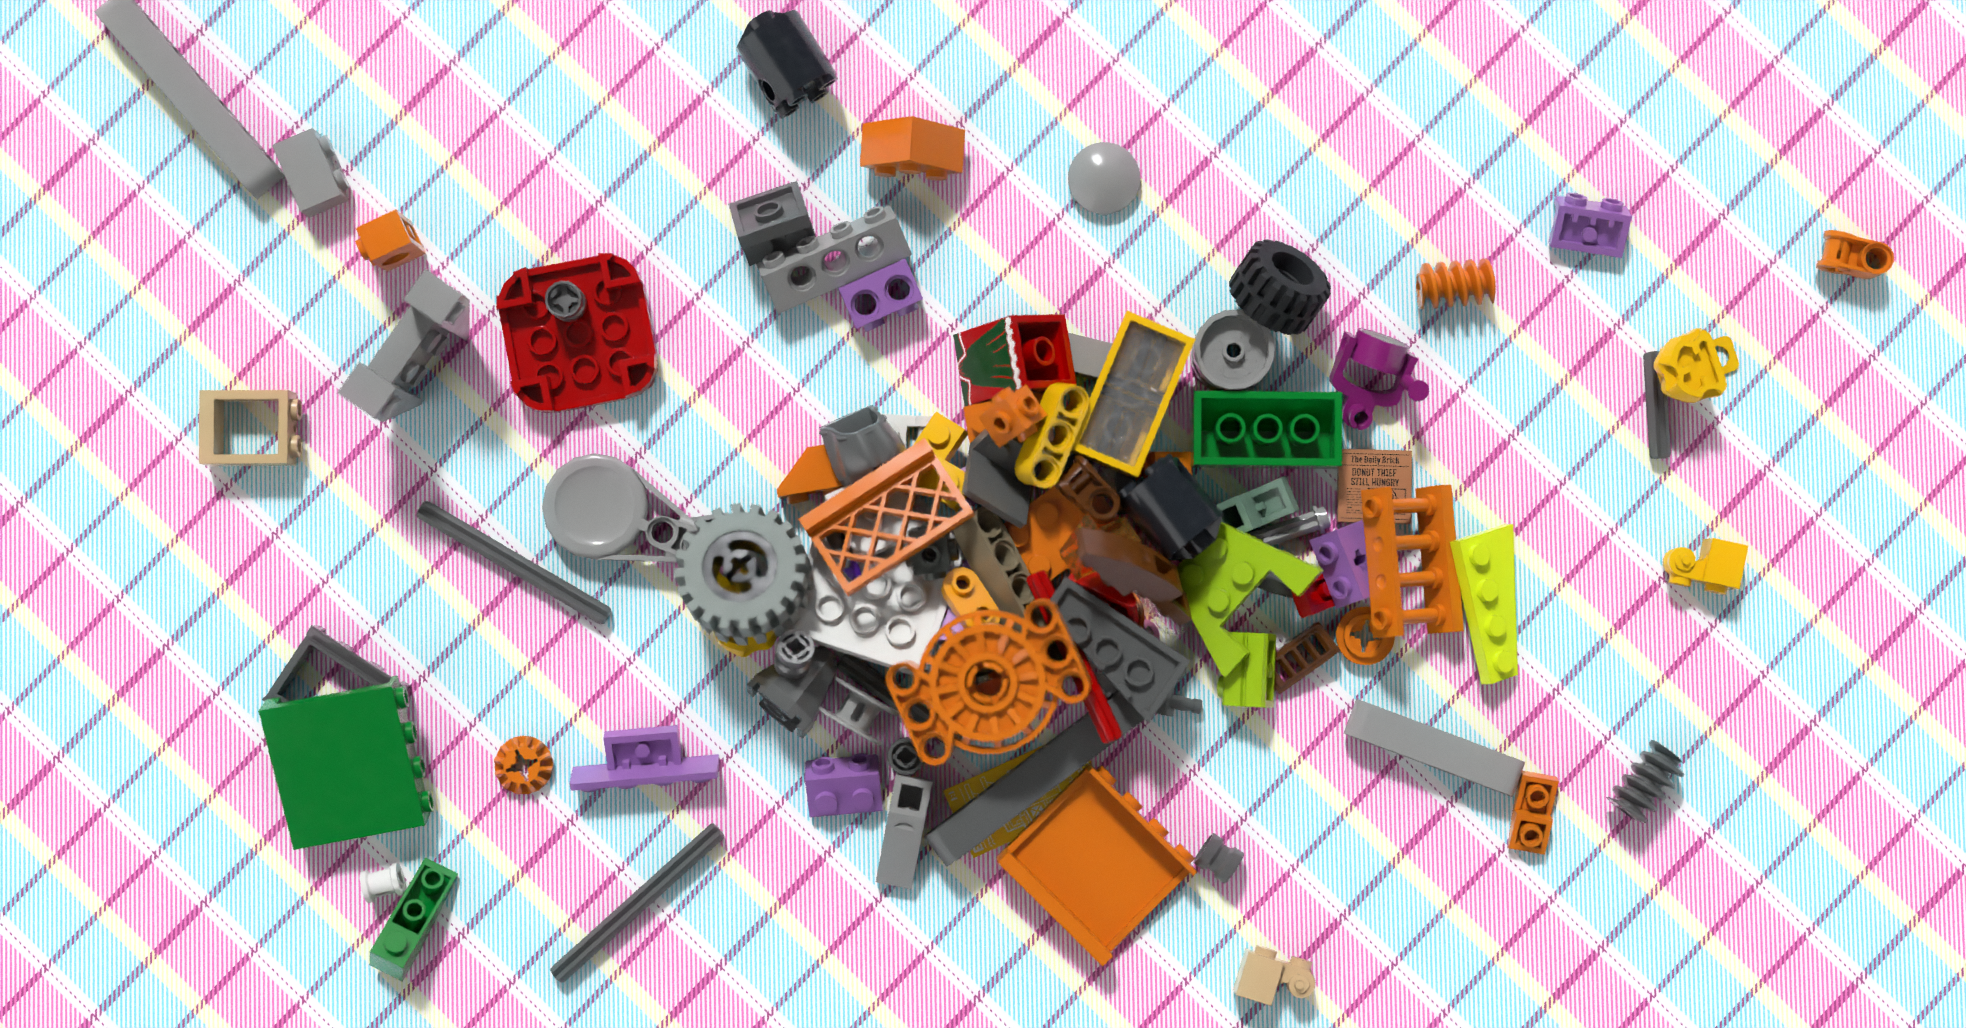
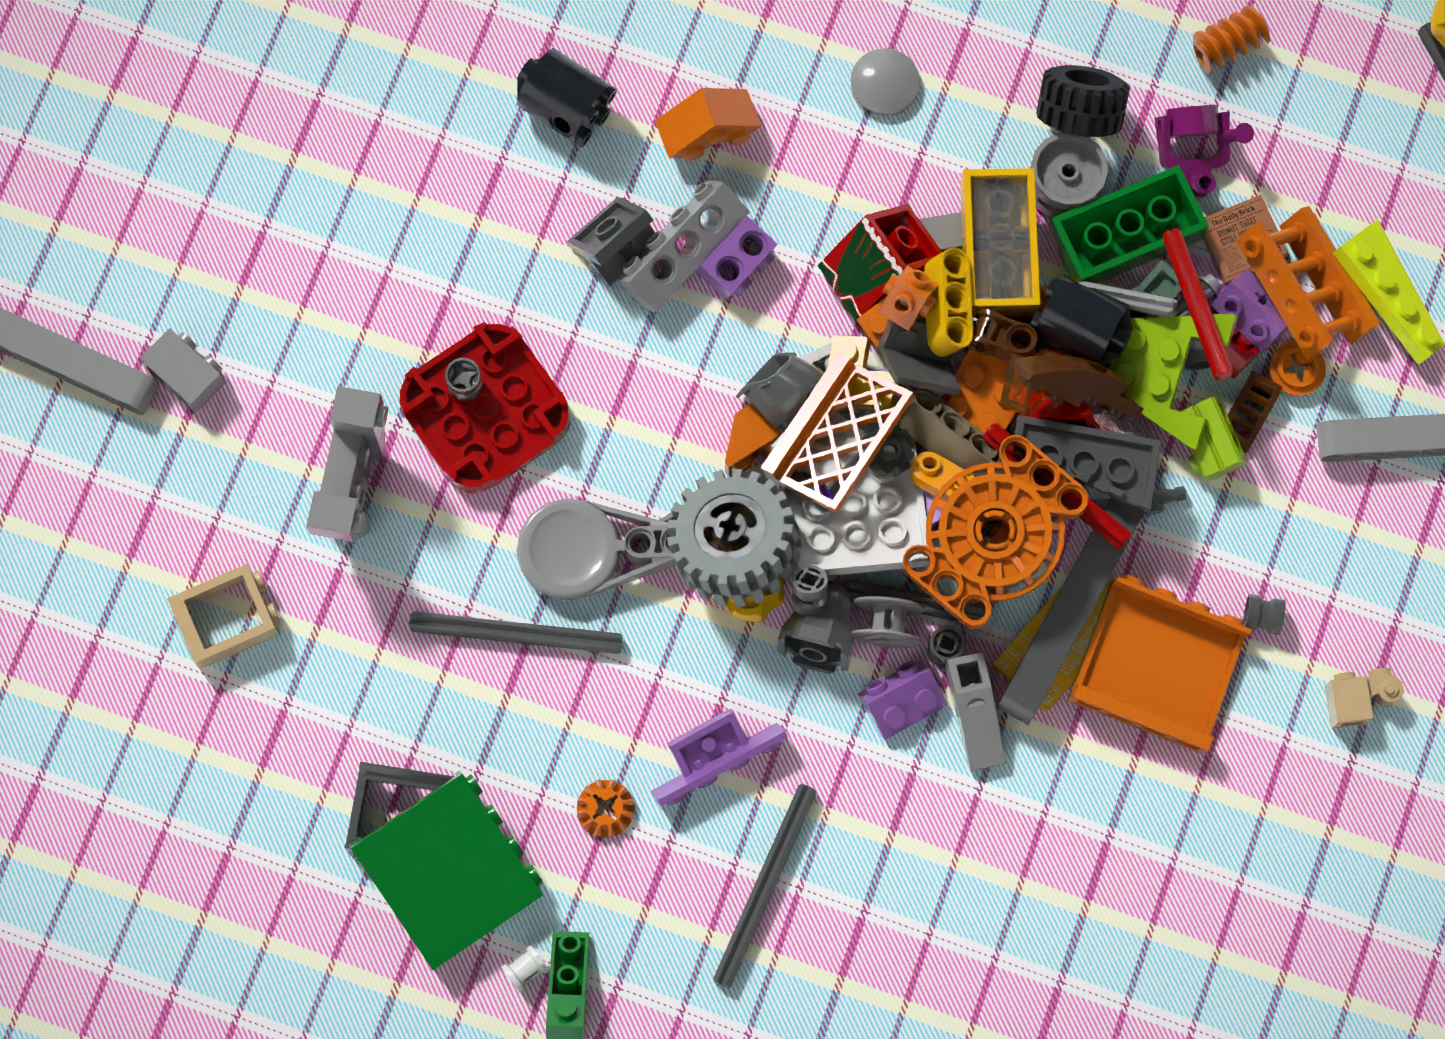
camera: 25 degrees left, 10 degrees down
(389, 241) = (282, 395): orange brick -> none
(1231, 507) = (1139, 301): none -> light grey axle
(1288, 544) = (1197, 305): none -> red axle

